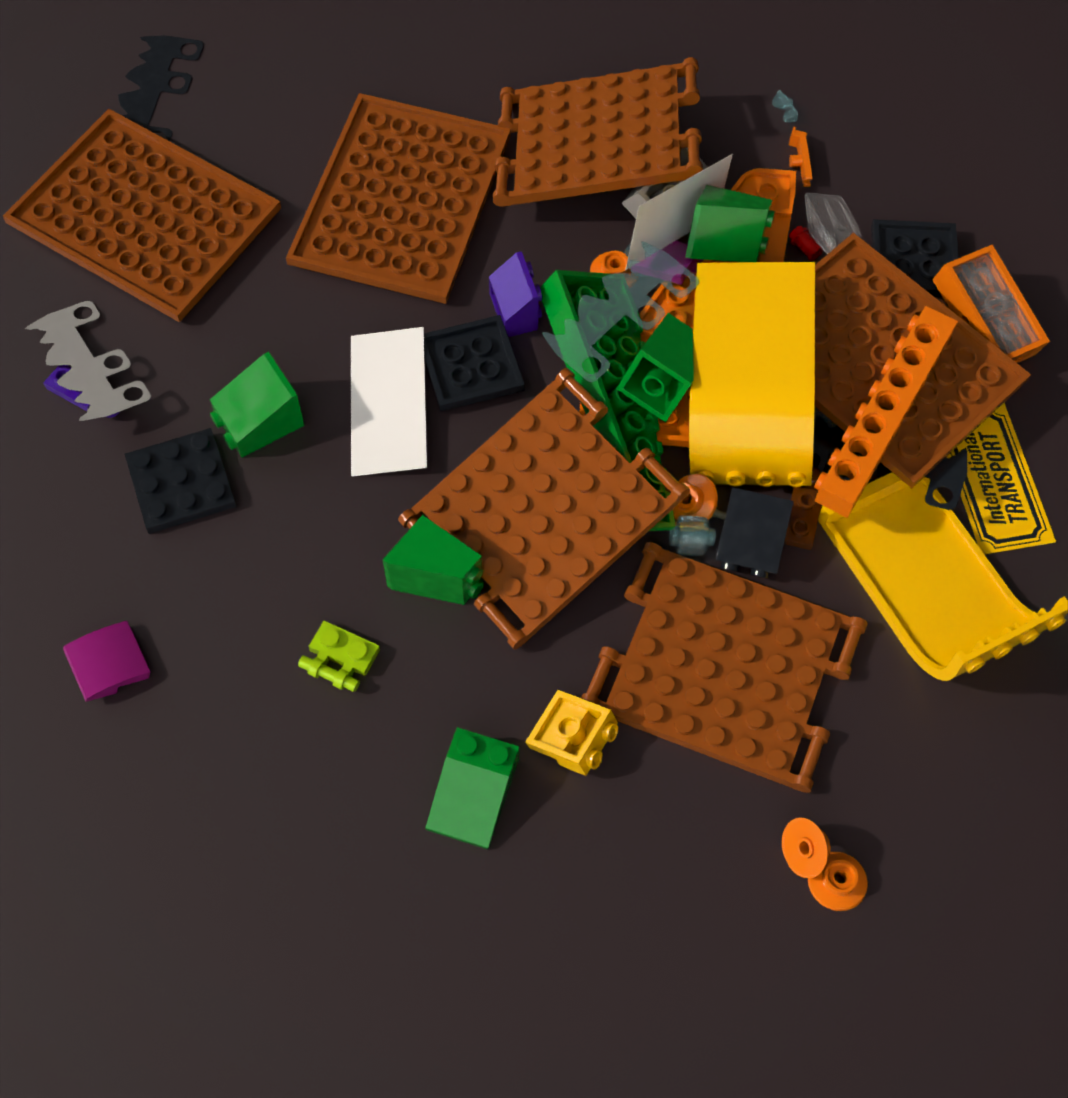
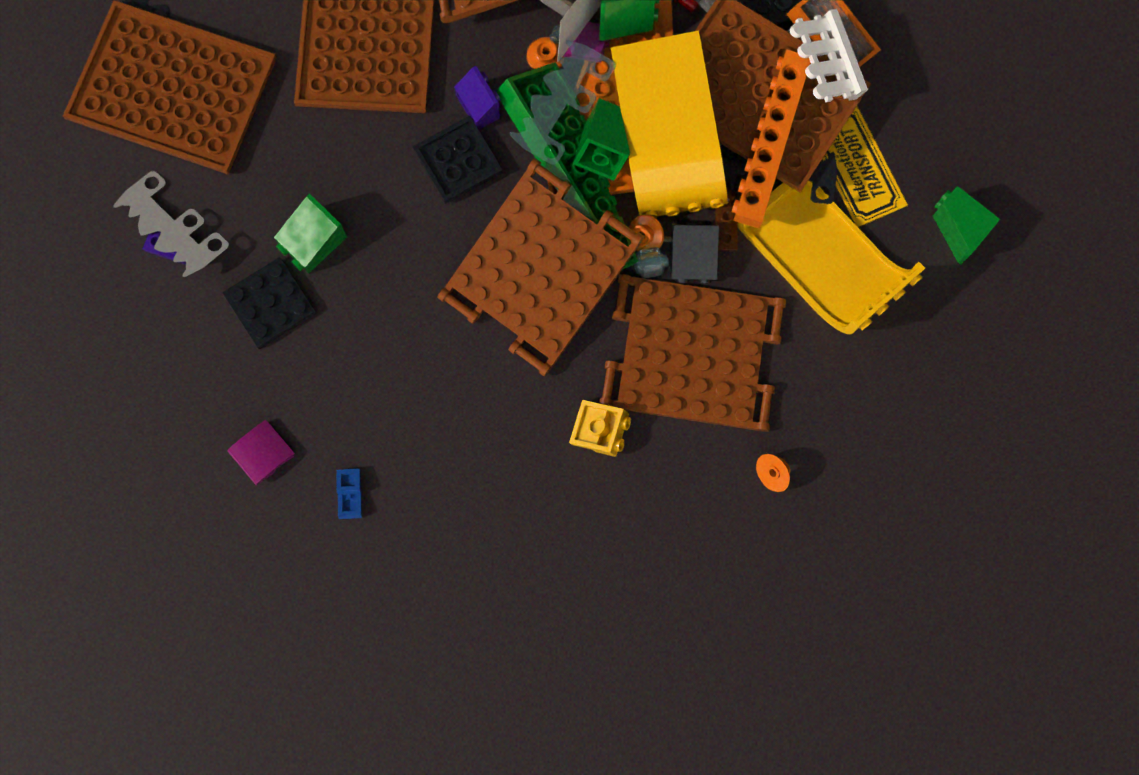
camera: 15 degrees left, 15 degrees up
(206, 743) = (349, 494): none -> blue slope
(341, 648) = (426, 404): lime plate -> none
(388, 402) = (404, 204): white sticker -> none
(434, 565) = (474, 329): green slope -> none
(472, 788) = (541, 483): green slope -> none
(840, 895) = (810, 490): orange piece -> none
(995, 331) = (840, 53): none -> white fence

